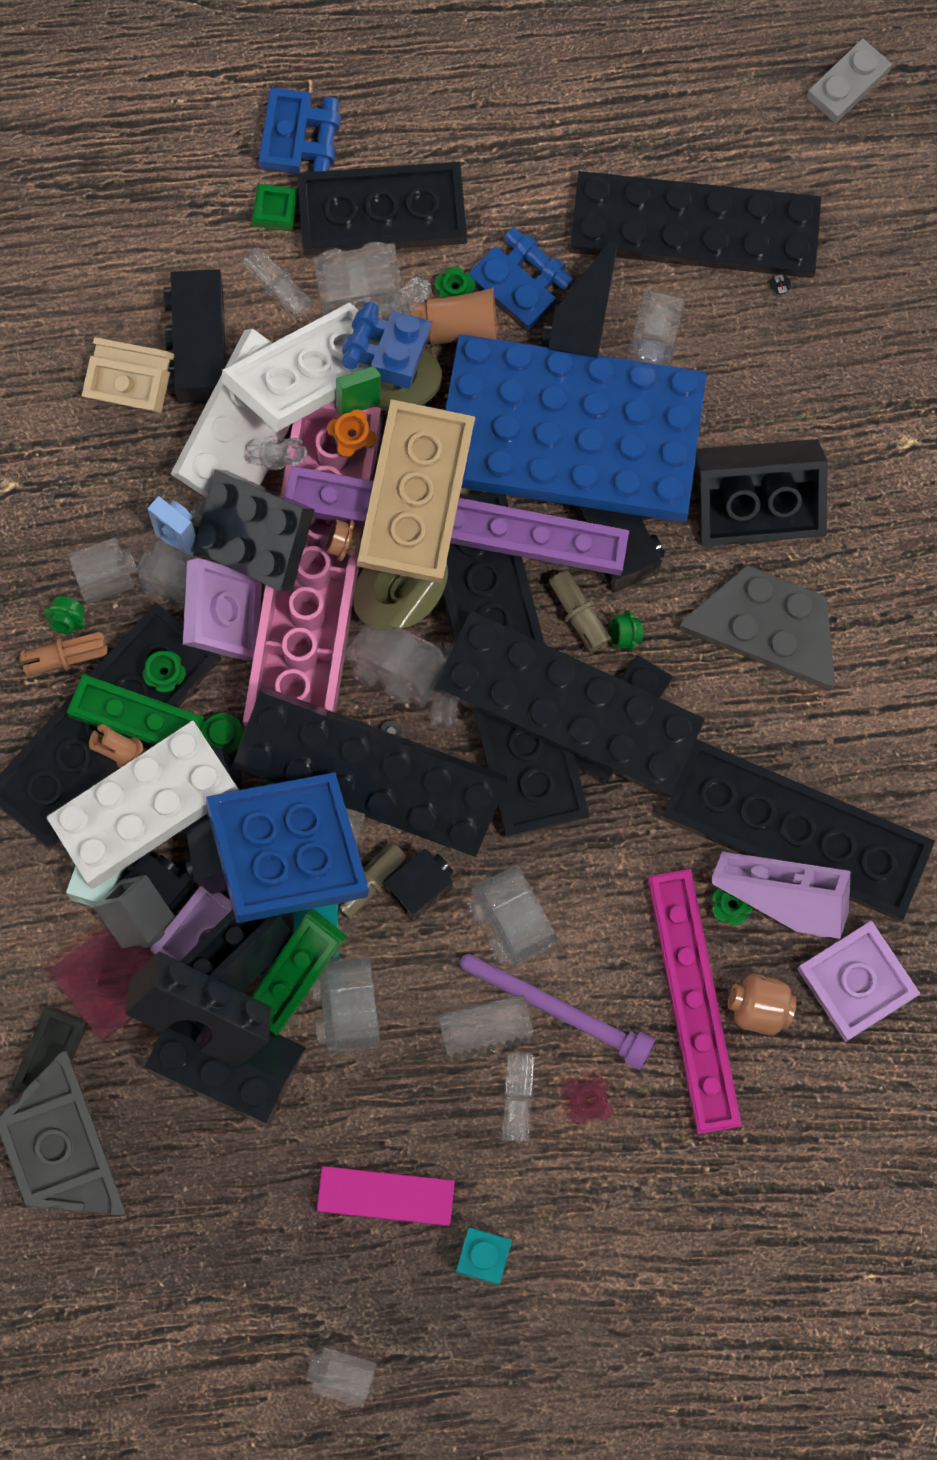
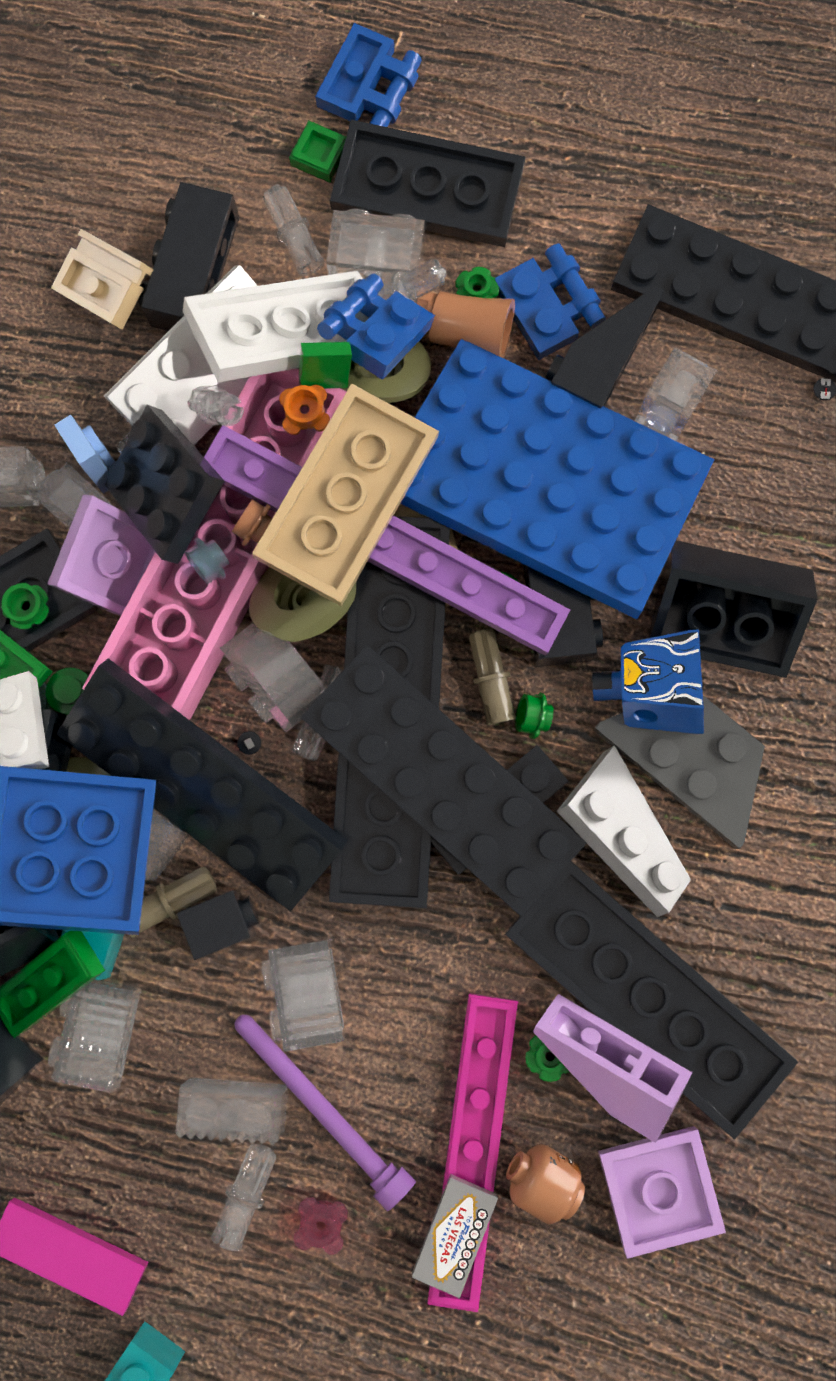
camera: 25 degrees right, 5 degrees up
(314, 582) = (207, 560): none -> clear light blue plate
(702, 1067) = (454, 1236): none -> tile
(720, 571) = (658, 683): none -> blue torso
(734, 702) = (625, 833): none -> wing

